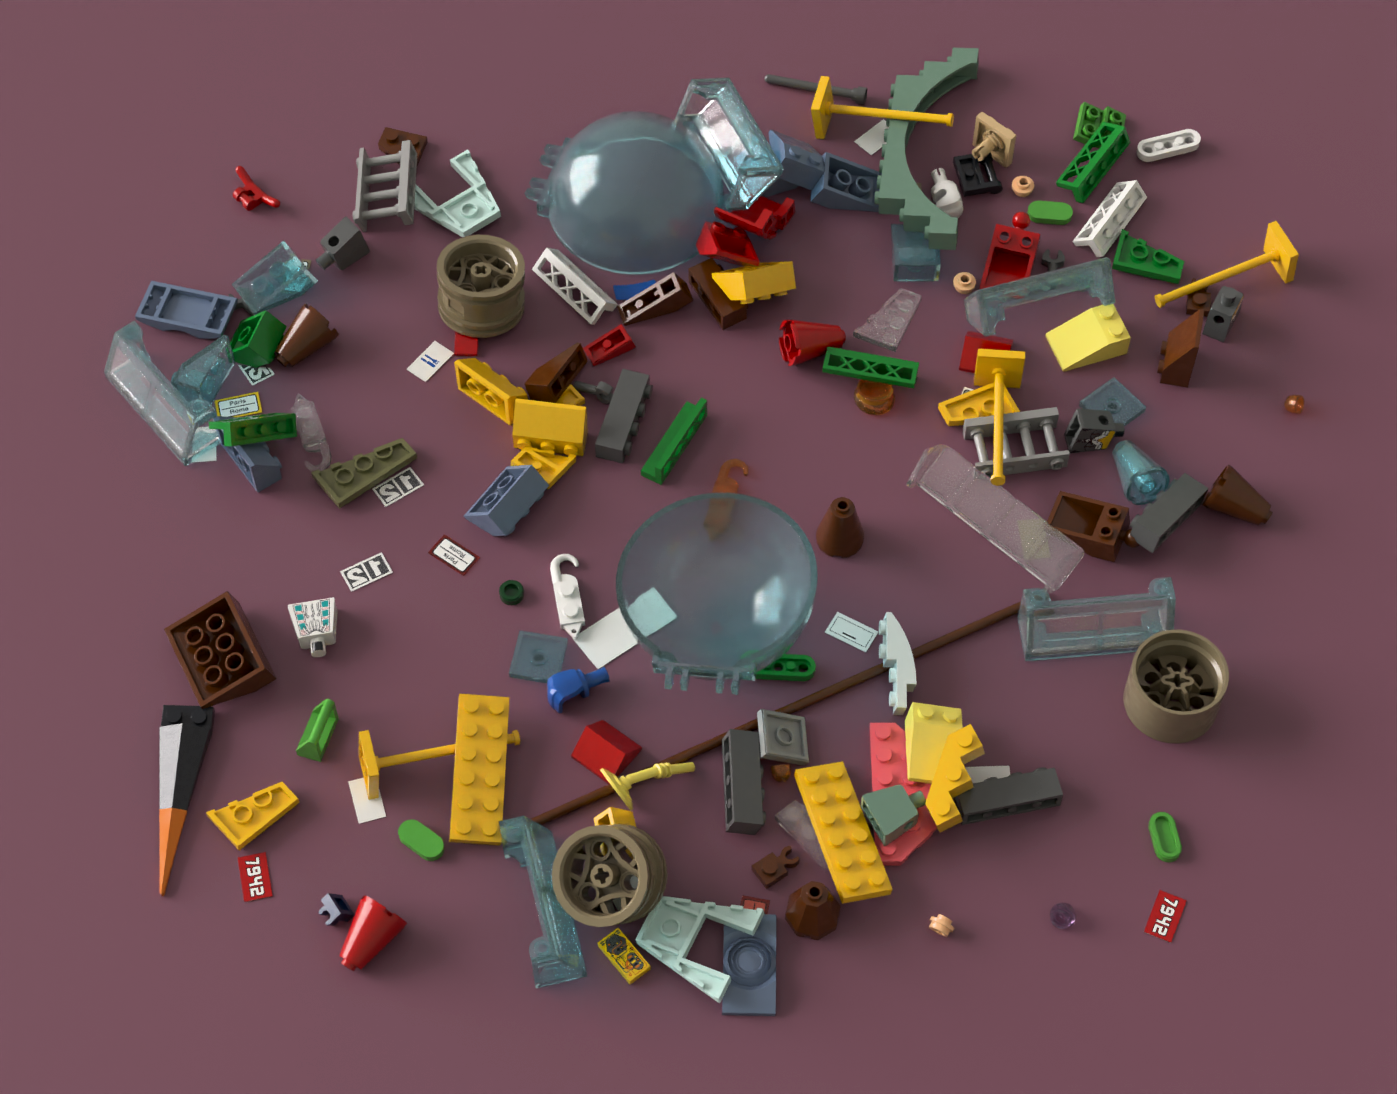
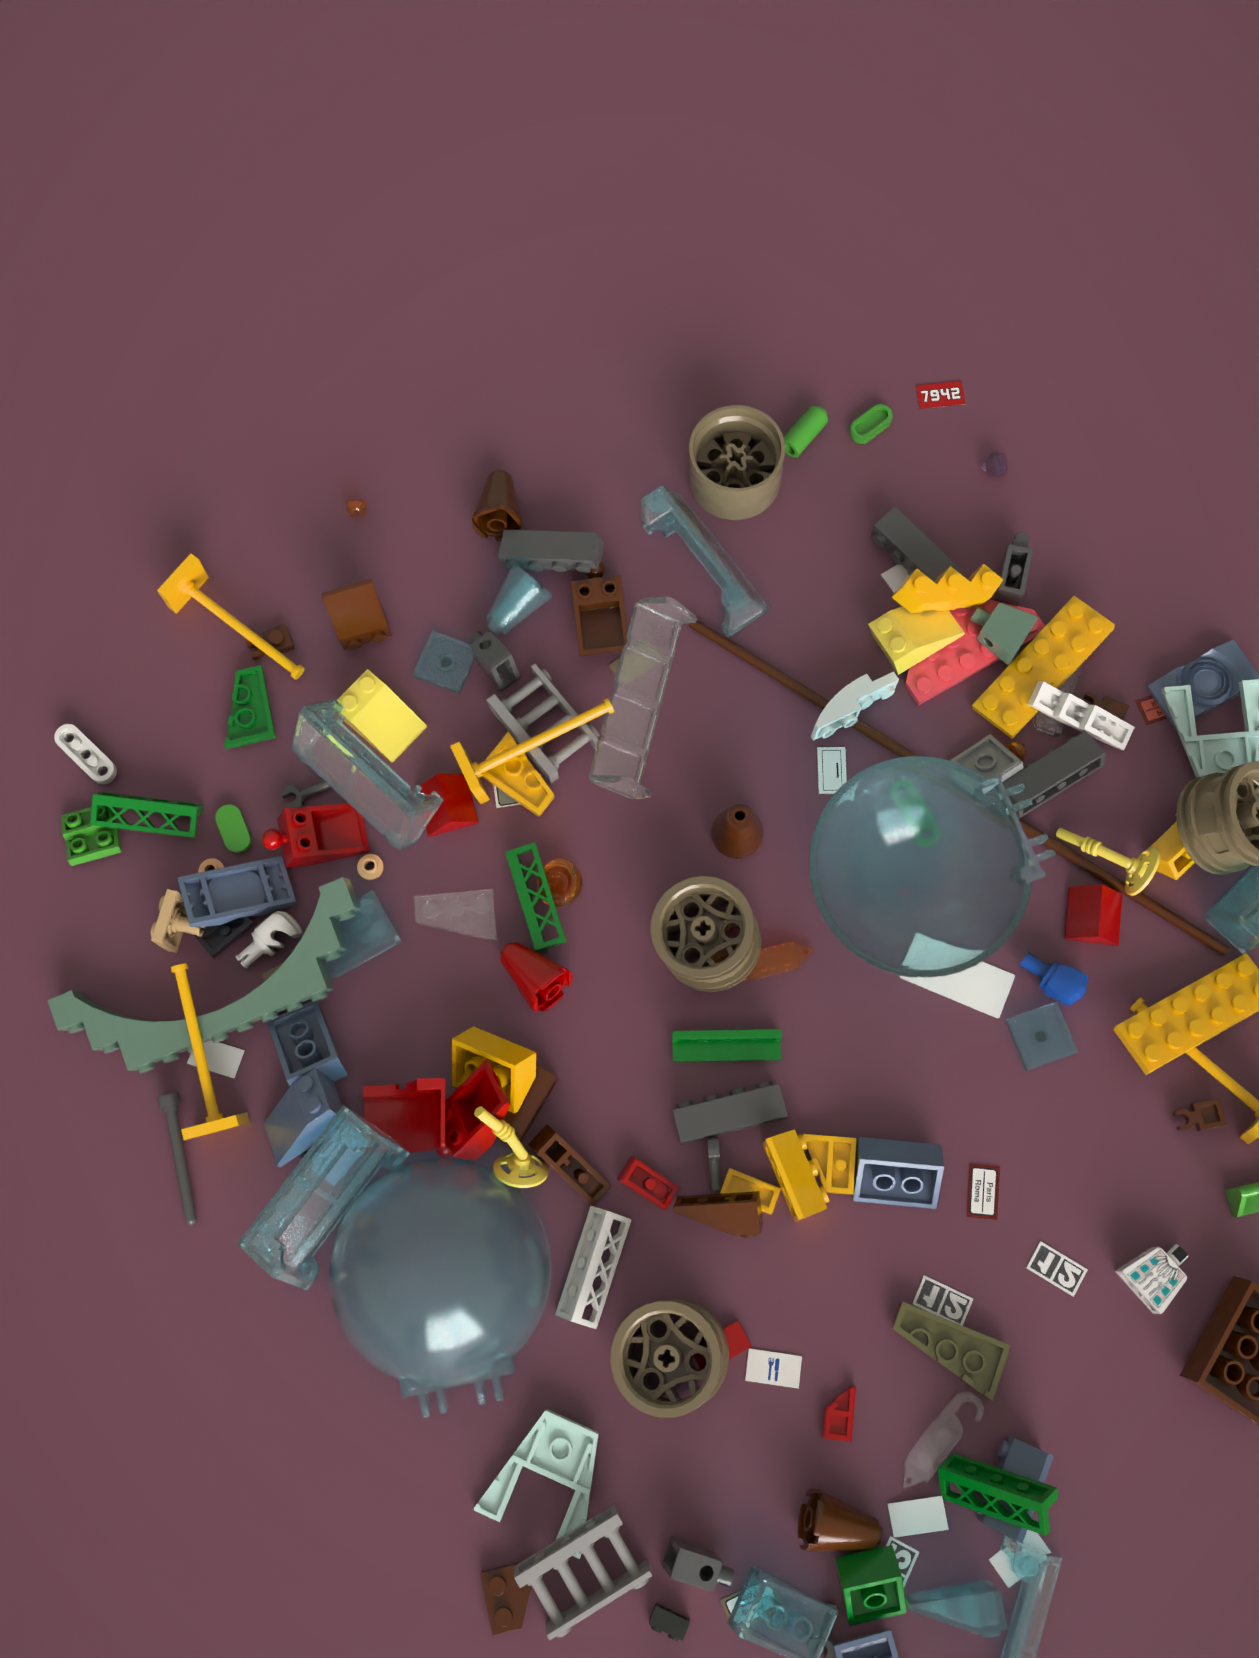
camera: 115 degrees left, 15 degrees up
(239, 405) = (955, 1550): sticker -> none
(274, 393) = (918, 1516): none -> white sticker
(320, 223) = (669, 1621): none -> pearl dark grey piece
(369, 381) = (839, 1416): none -> red tile
(401, 731) = (1204, 1115): none -> reddish brown plate
(488, 388) = (779, 1269): yellow slope -> none
(511, 592) = (990, 1105): dark green tile -> none
(567, 596) = (960, 1048): white plate -> none
(625, 292) = (560, 1199): blue sticker -> none
(677, 265) = (519, 1161): none -> light yellow dish
(765, 451) = (706, 933): none -> dark tan wheel
(775, 834) = (1081, 715): none -> white slope
(812, 911) = (1126, 656): reddish brown cone -> none
(941, 925) = (1070, 549): light nougat plate -> none
(946, 859) = (1014, 570): none -> dark grey hinge
(993, 184) = (236, 892): none -> sand blue slope
(1111, 217) = (211, 758): white fence -> none
(1184, 771) = (805, 430): none -> bright green brick
(1226, 305) = (285, 605): dark grey torso -> none

